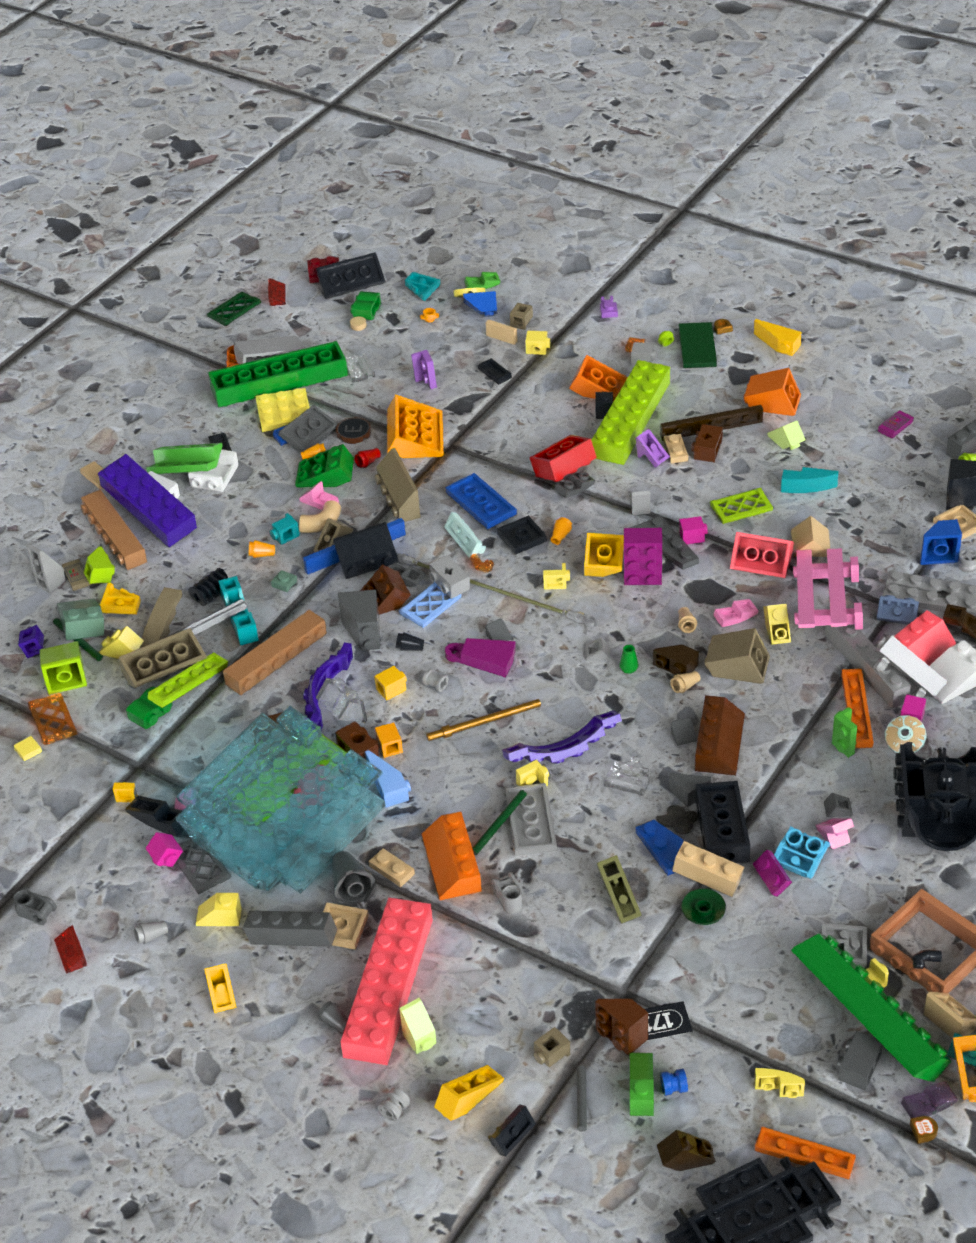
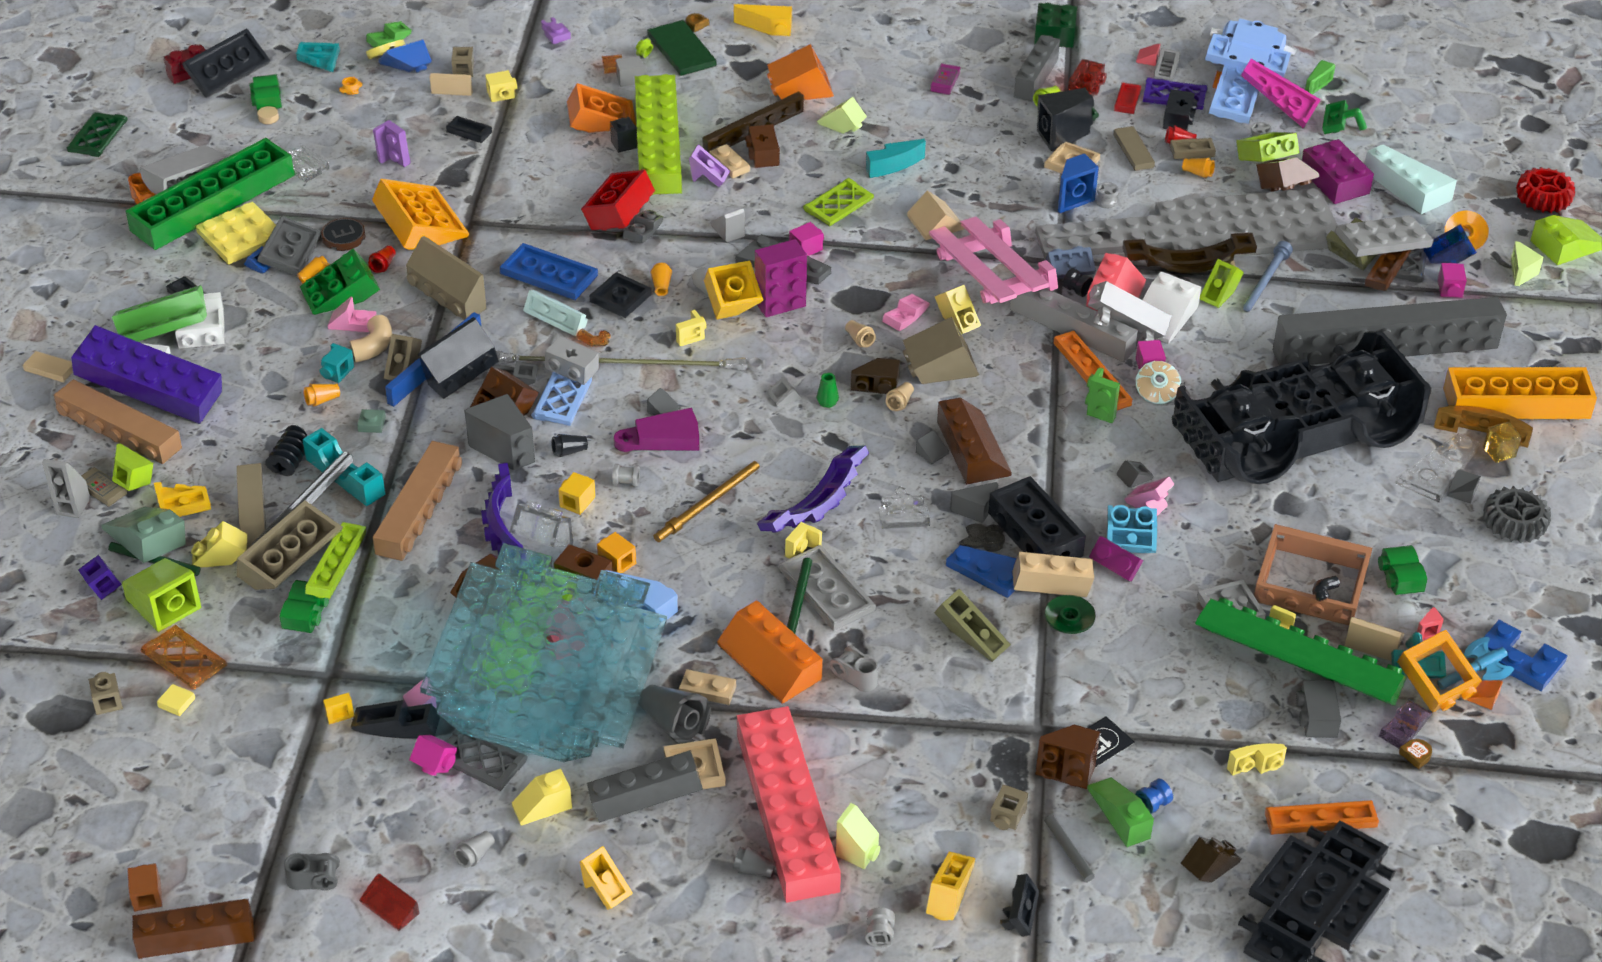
camera: 30 degrees left, 0 degrees up
(276, 292) = (141, 104): clear red slope -> none
(761, 555) = (896, 245): coral slope -> none
(890, 625) = (1075, 281): none -> black wheel

